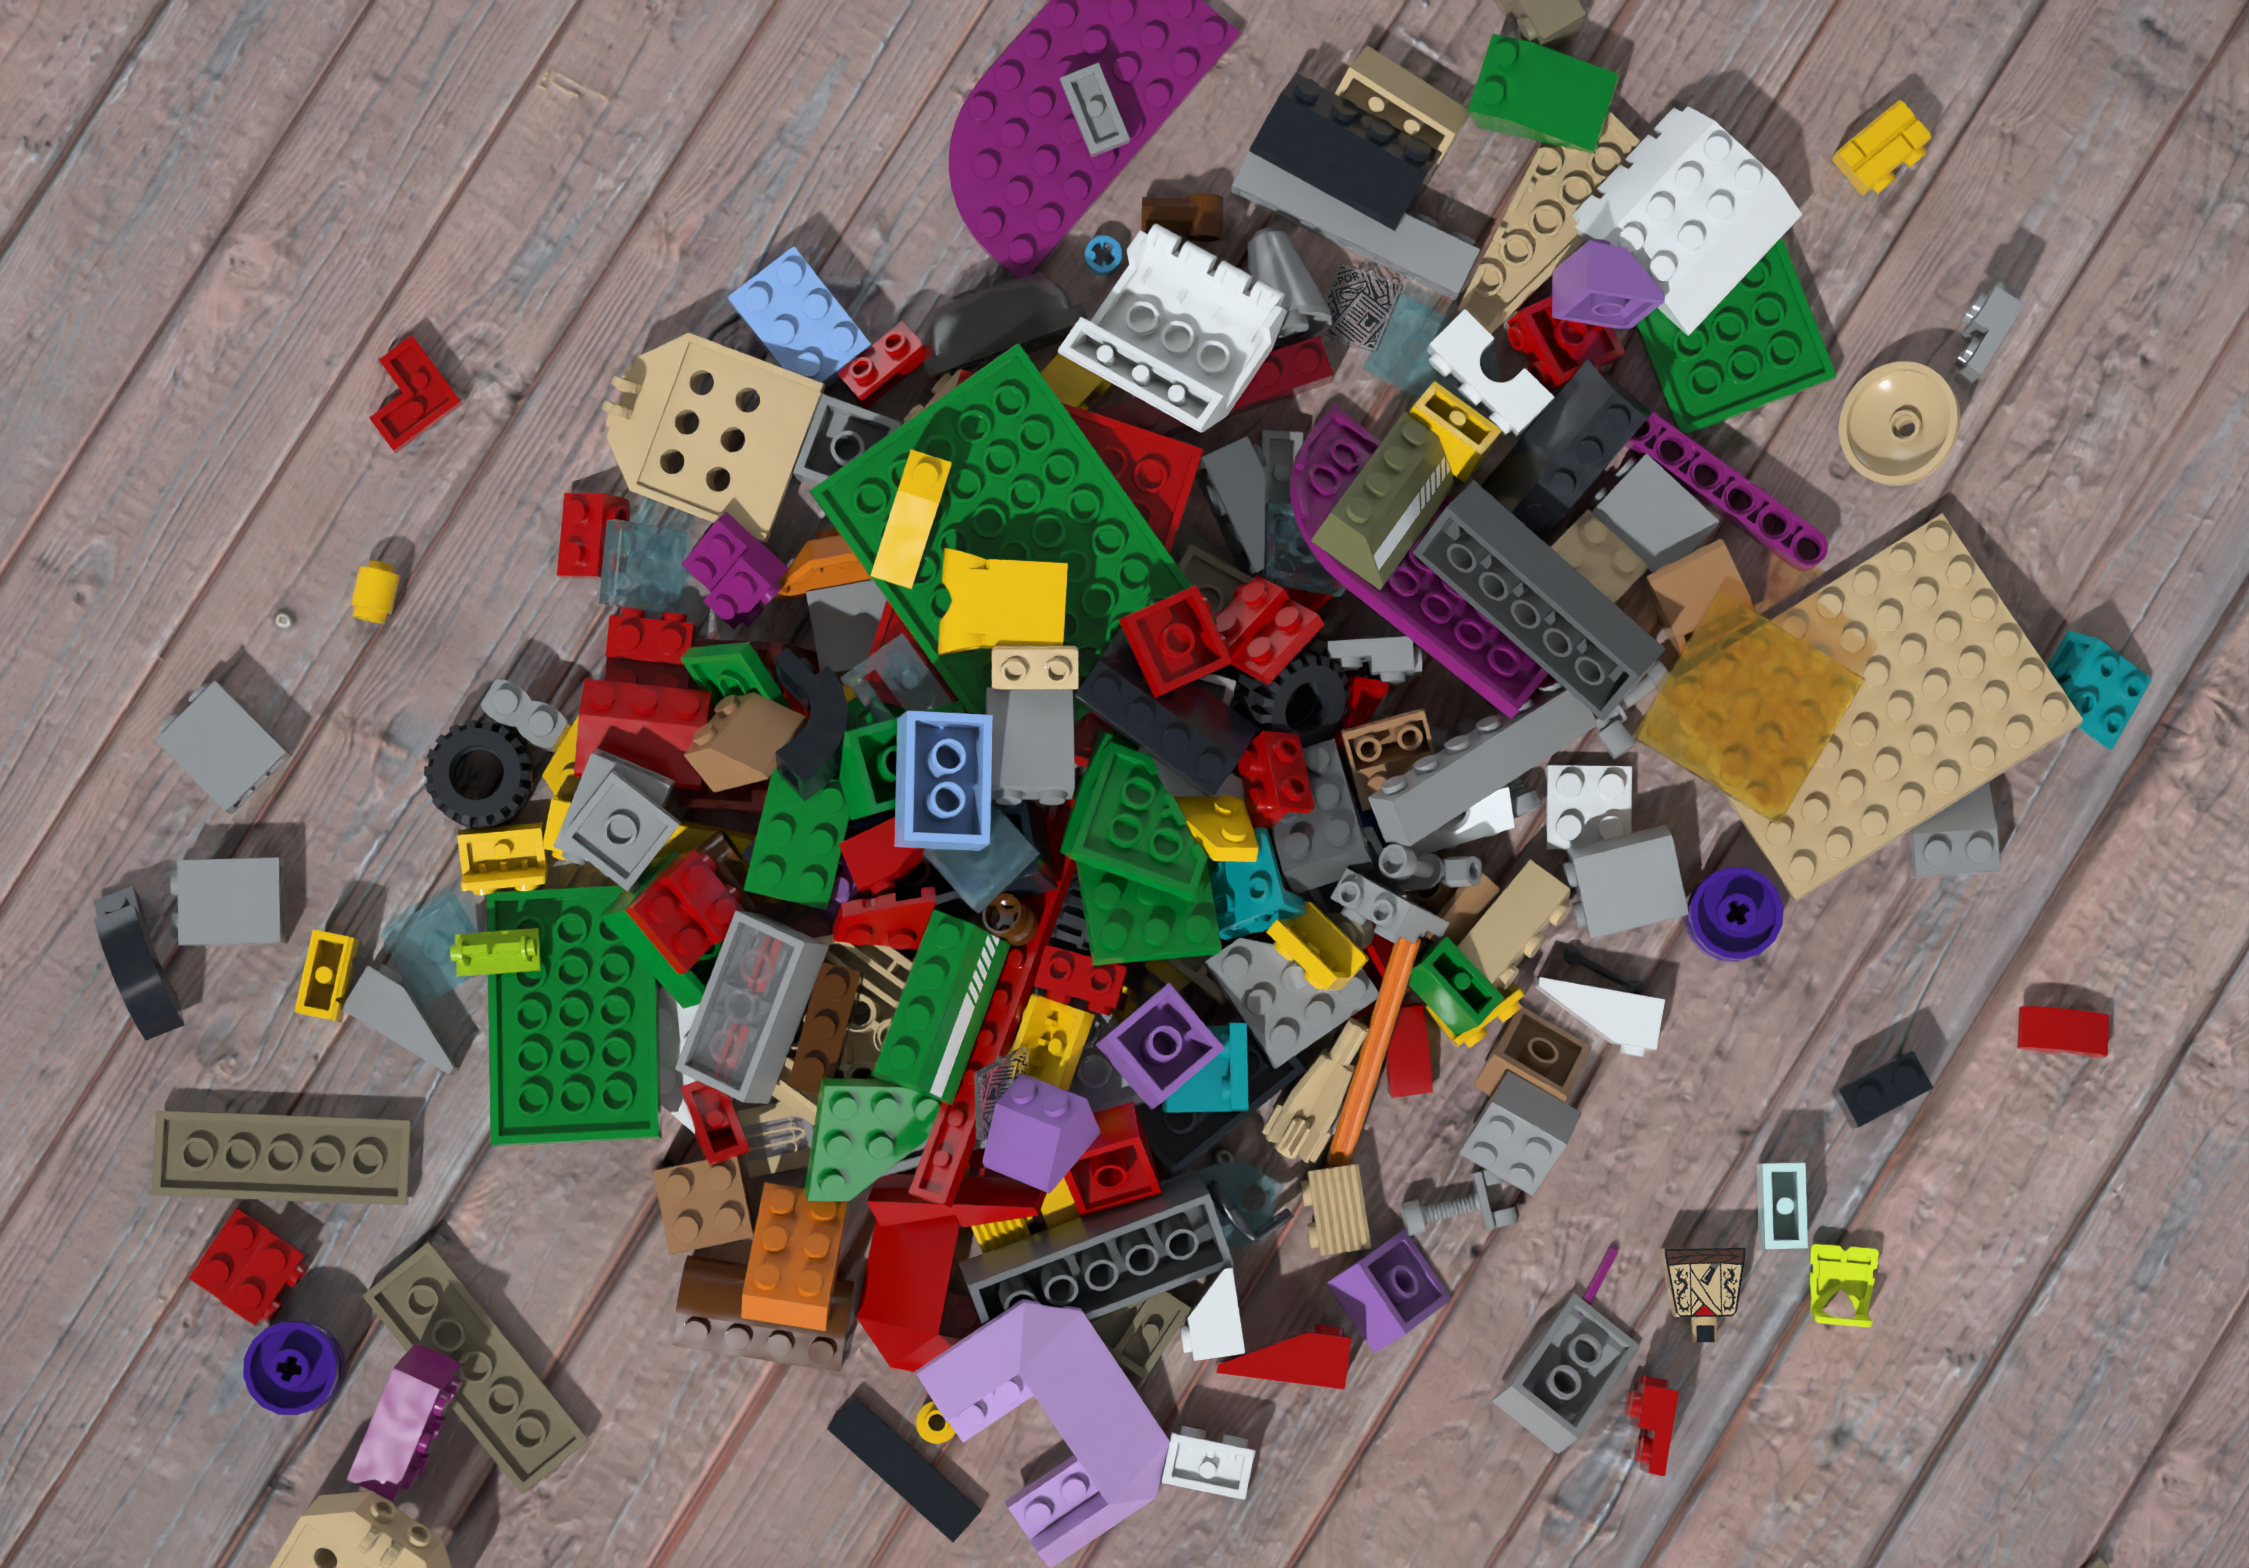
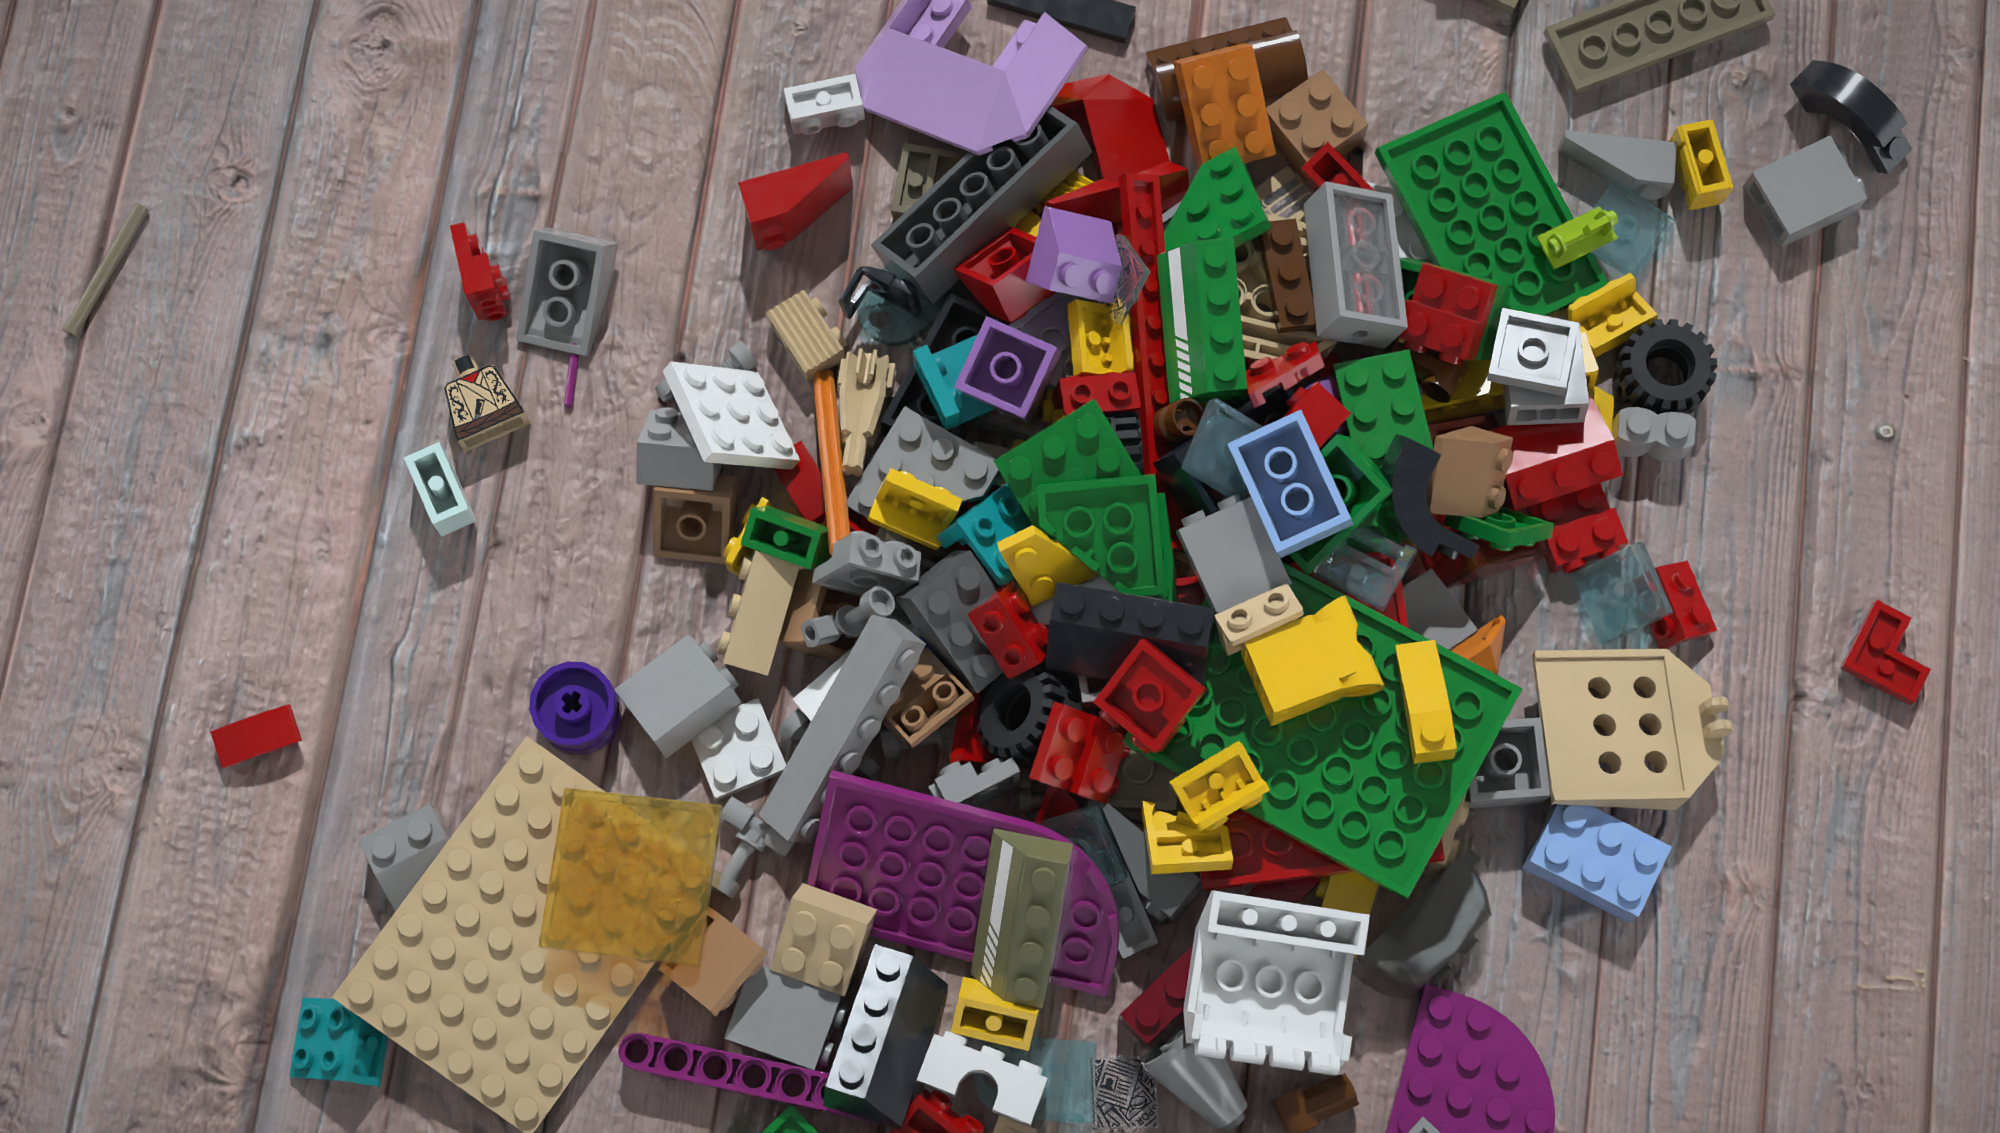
camera: 160 degrees right, 10 degrees down
(222, 746) = (1880, 306): light grey brick -> none
(374, 592) = (1827, 479): yellow brick -> none
(735, 571) = (1540, 622): magenta plate -> none
(883, 365) = (1510, 851): red bracket -> none
(1116, 255) = (1377, 1033): dark azure bush -> none
(1148, 525) = (1219, 787): none -> yellow bracket
(1203, 496) = (1180, 847): none -> yellow wing
(1214, 1321) = (865, 199): white slope -> none
(1389, 1291) = (736, 291): medium lavender slope -> none
(1456, 1141) = (731, 416): none -> white plate
(1538, 600) = (851, 884): dark grey brick -> none
(1572, 956) = (699, 622): black hinge -> none
(1612, 1014) = (644, 585): white slope -> none
(1845, 1271) = (368, 467): neon yellow piece -> none
(1882, 1089) = (392, 620): black brick -> none

